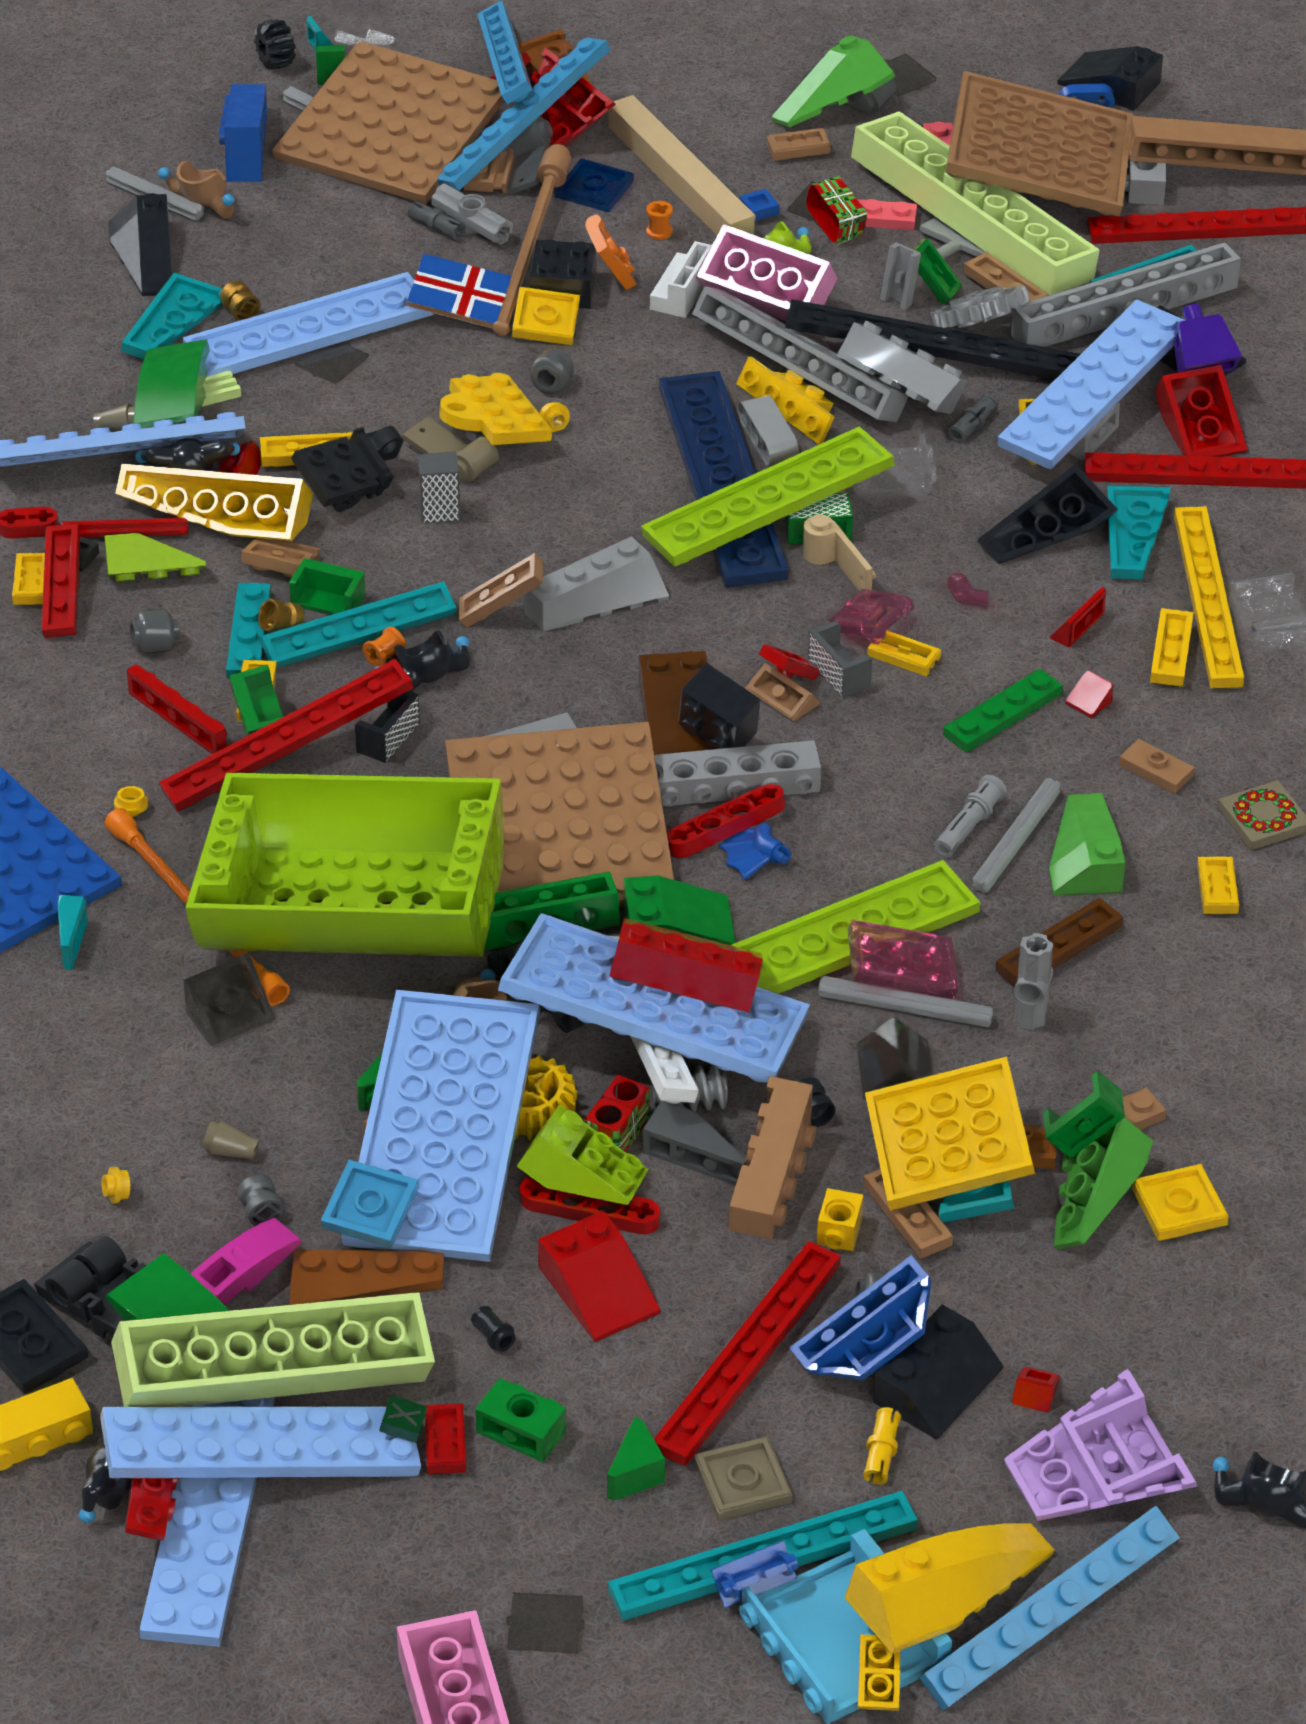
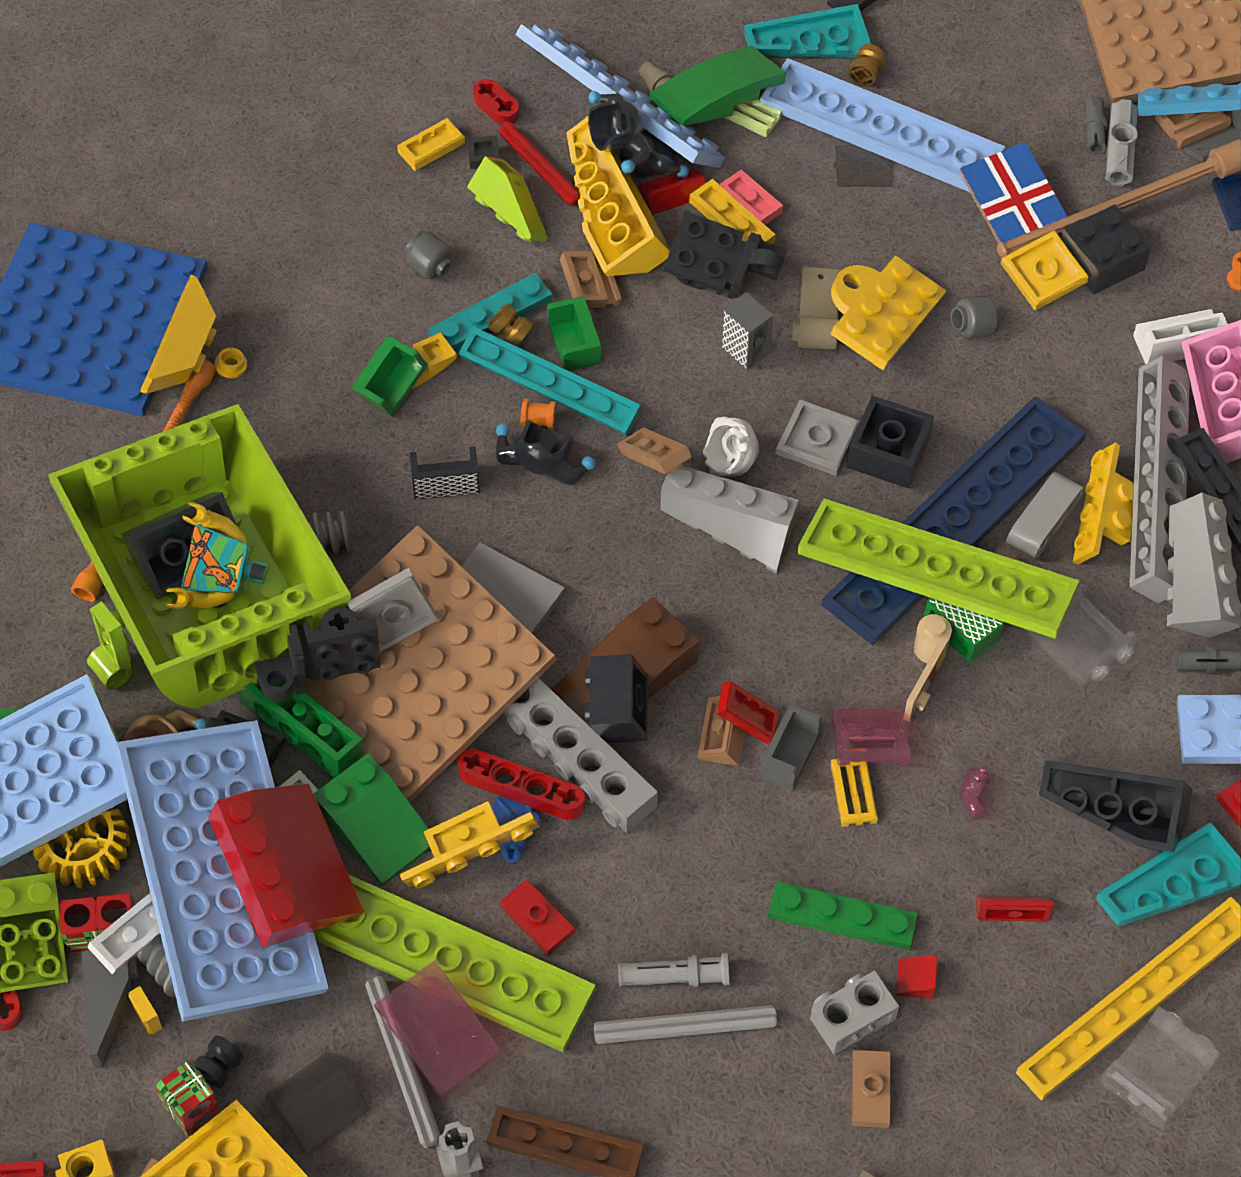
camera: 55 degrees right, 15 degrees up
(61, 580) = (434, 163): red plate -> none
(72, 927) = (54, 416): teal slope -> none
(86, 802) = (183, 340): none -> yellow wedge
(167, 444) = (618, 126): none -> black piece
(176, 709) = (350, 336): red plate -> none
(227, 1000) = (44, 565): clear smoke slope -> none
(287, 734) = (367, 415): red plate -> none
(299, 425) = (753, 197): none -> coral plate
(320, 869) = (164, 543): none -> black slope
(369, 977) = (112, 658): none -> lime plate
(370, 856) = (215, 562): none -> torso
(524, 832) = (323, 654): none -> black plate
(525, 779) = (397, 607): none -> light grey tile
(539, 540) = (730, 447): none -> white hair
(552, 410) = (921, 353): yellow plate -> none
(568, 513) = (817, 437): none -> light grey tile
(614, 256) = (1147, 267): orange plate -> none
(623, 469) = (890, 441): none -> black brick
(728, 1123) = (144, 1010): none -> yellow tile
(748, 867) = (465, 838): none -> yellow bracket
(773, 1159) = (110, 1076): medium nougat wedge -> none
(839, 1120) = (183, 1091): none -> piece
(849, 871) = (537, 917): none -> red plate
(1087, 849) = (708, 1095): bright green wedge -> none
(1091, 738) = (860, 1018): none -> light grey brick
(1171, 647) = (1039, 1007): yellow plate -> none

